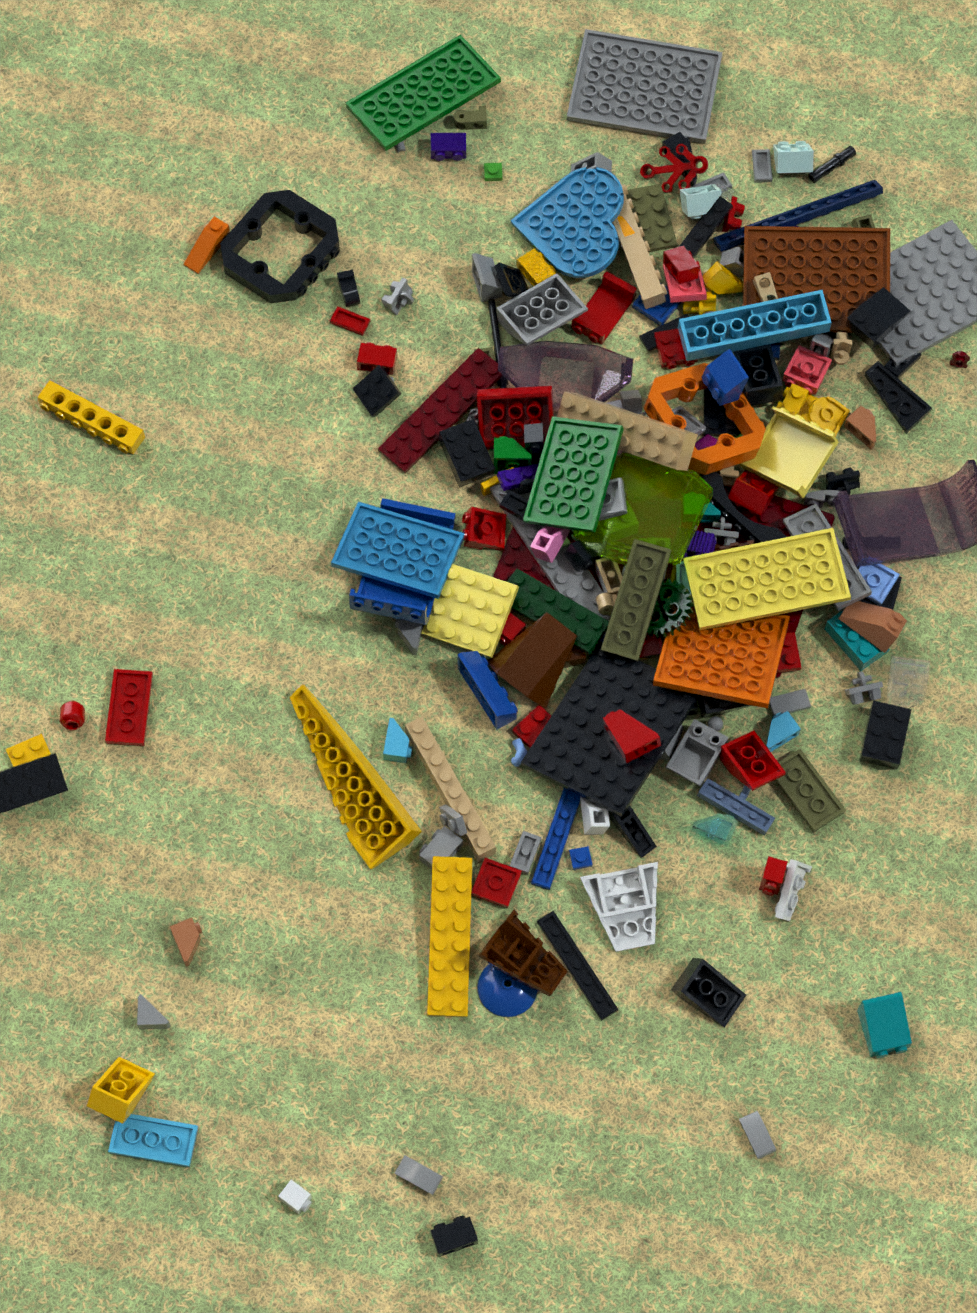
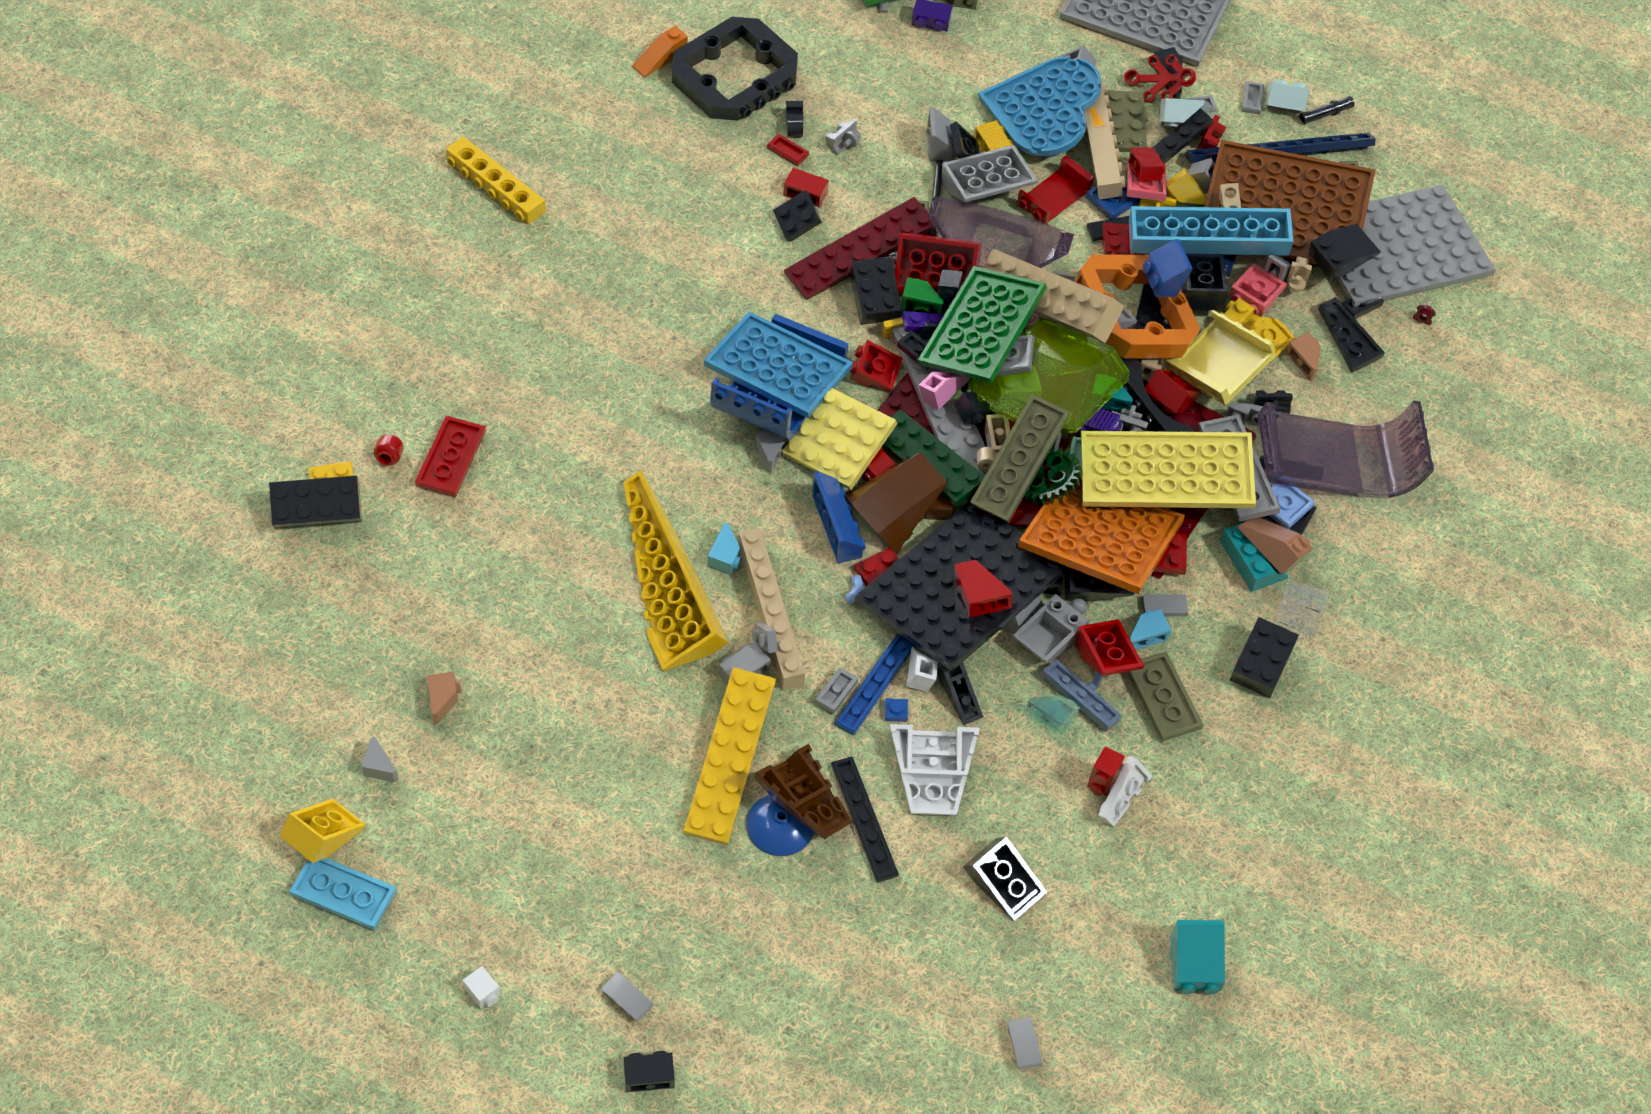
camera: 10 degrees right, 10 degrees down
(493, 171) = (972, 47): bright green plate -> none
(496, 882) = (796, 713): red plate -> none
(856, 693) = (1241, 609): light grey hips -> none

